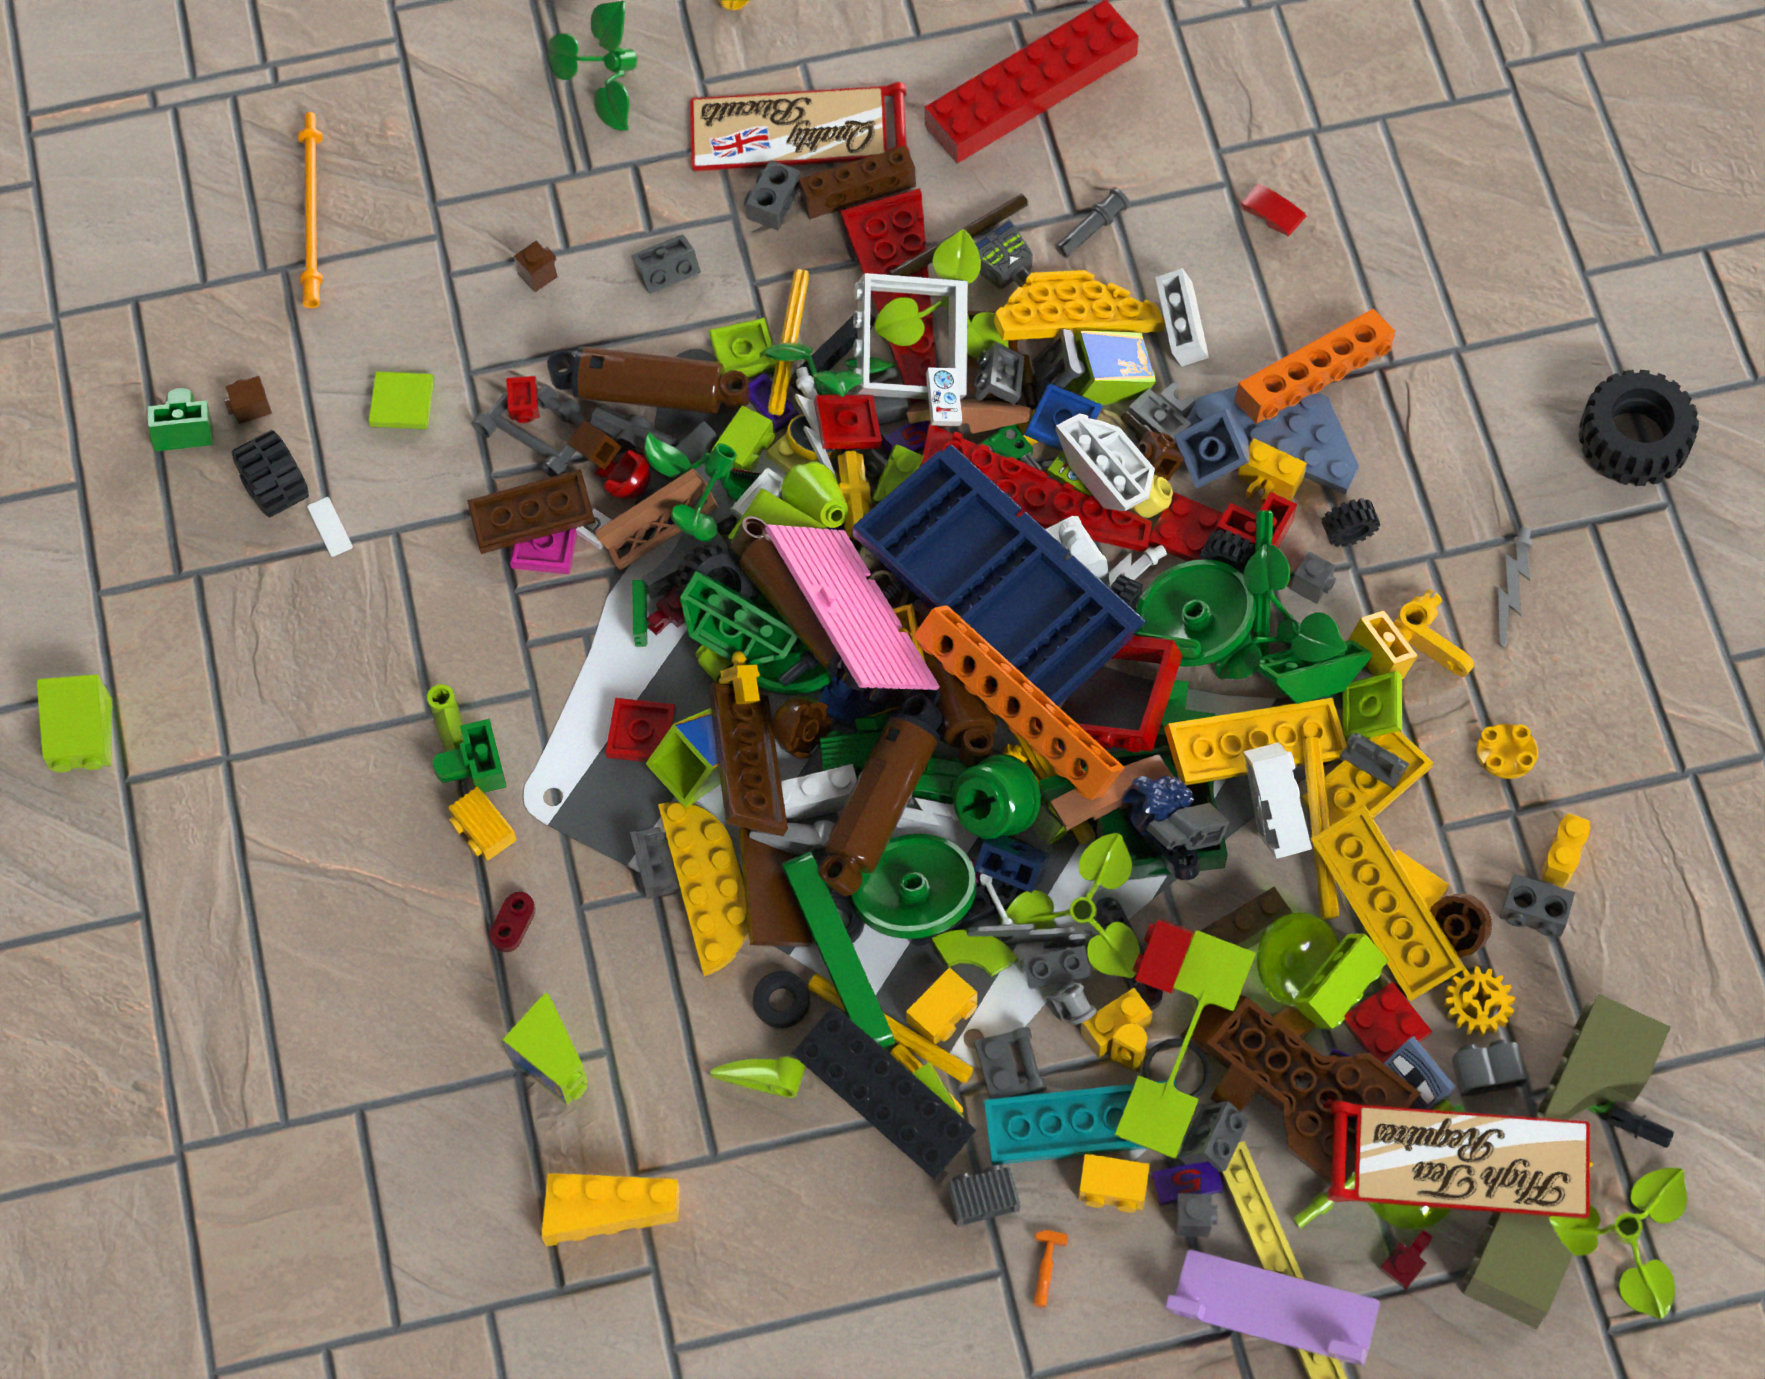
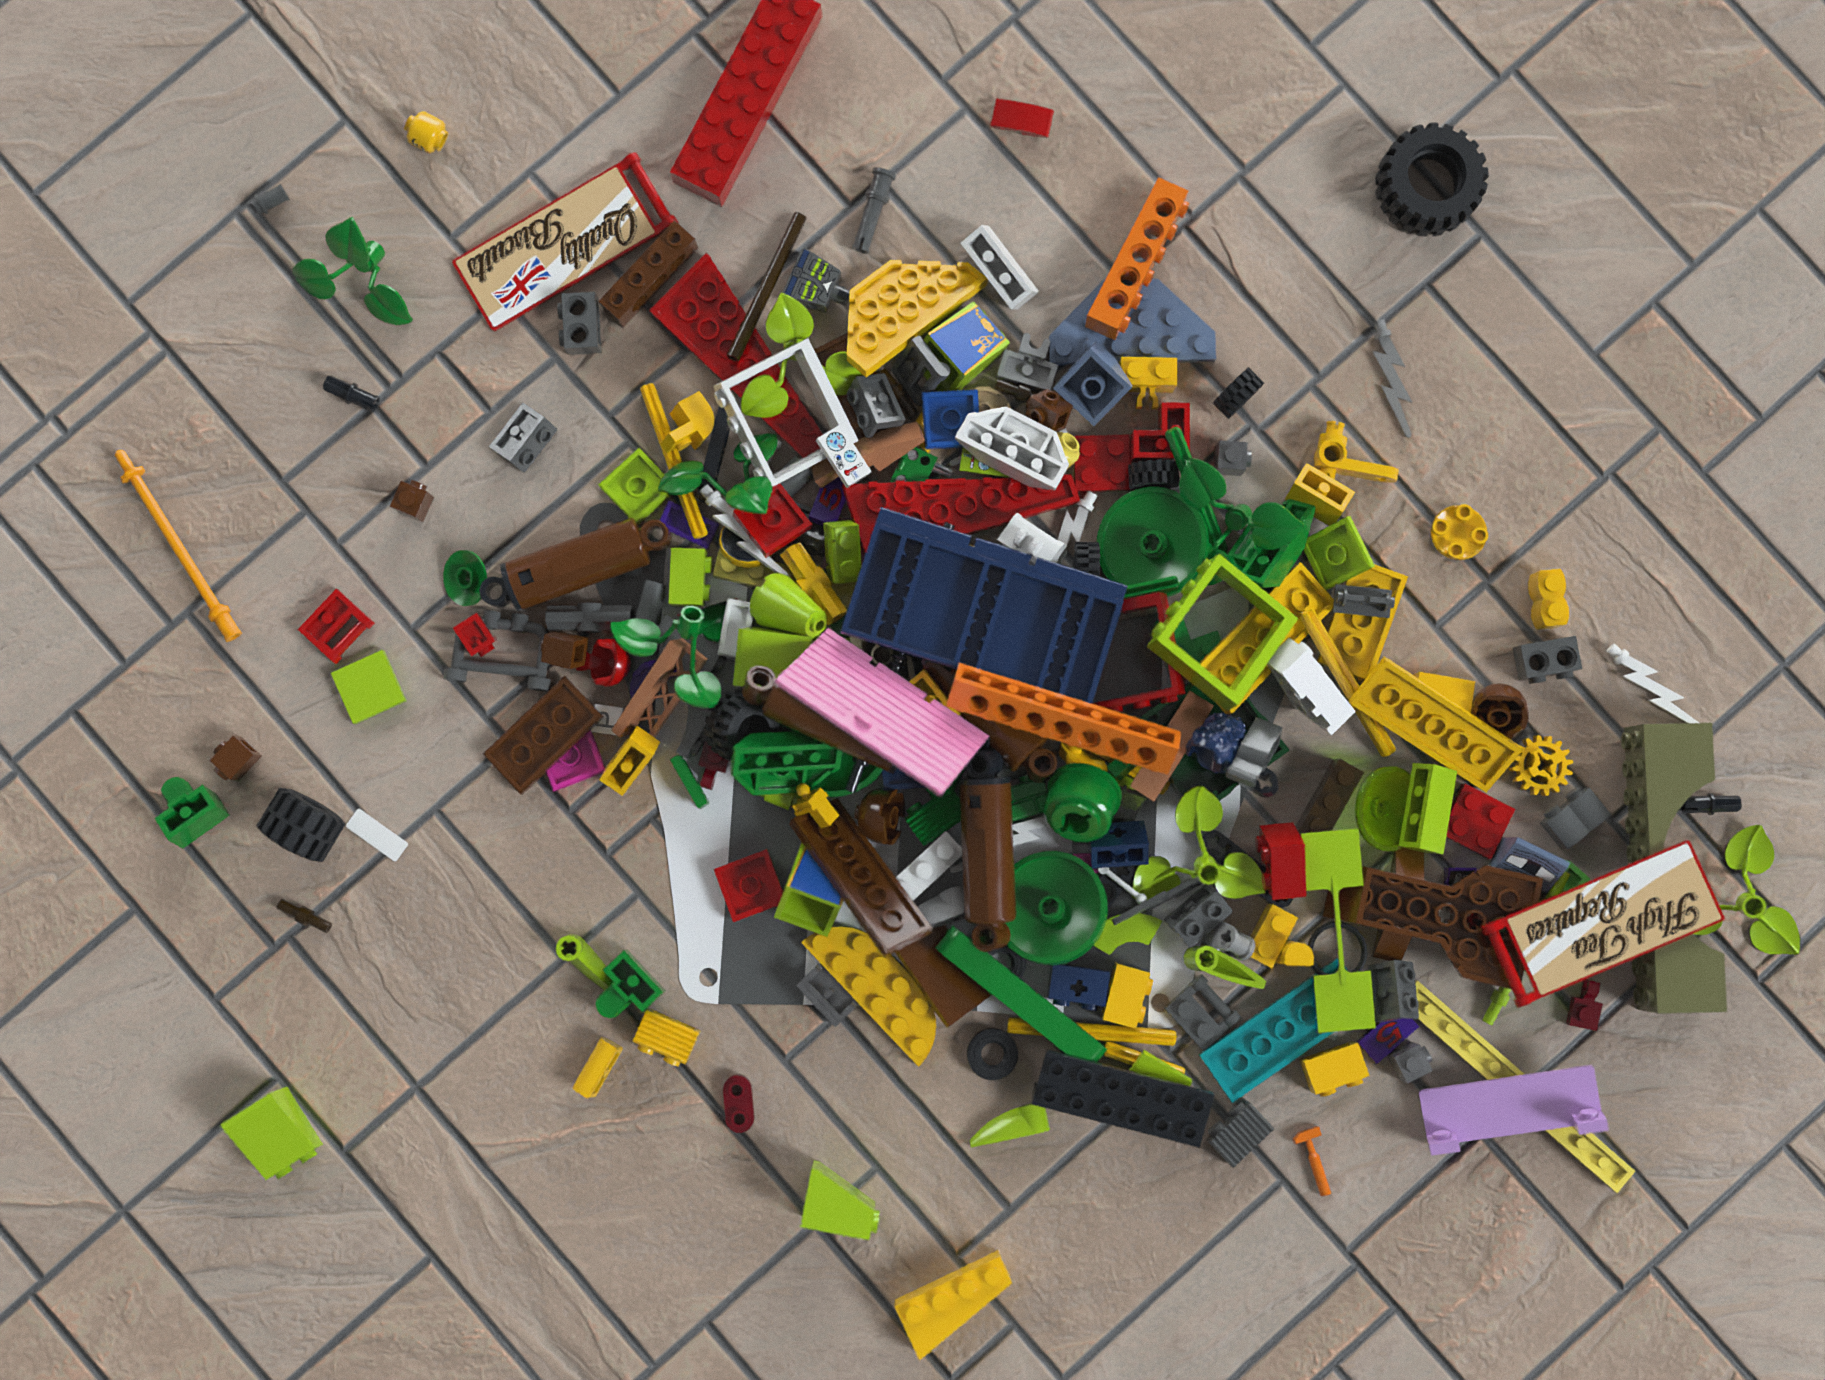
camera: 35 degrees left, 20 degrees up
(222, 560) = (304, 915): none -> dark brown bar
(402, 821) = (597, 1068): none -> yellow brick
(404, 328) = (330, 619): none -> red plate
(537, 160) = (351, 393): none -> black axle
(540, 346) = (463, 577): none -> green dish
(595, 563) = (629, 760): none -> yellow brick
(822, 318) = (694, 421): none -> yellow brick
(894, 959) = (1095, 985): none -> dark blue brick
(1053, 1027) = (1221, 966): none -> lime piece
(1169, 724) = (1194, 672): none -> lime window
(1626, 972) = (1639, 678): none -> white piece

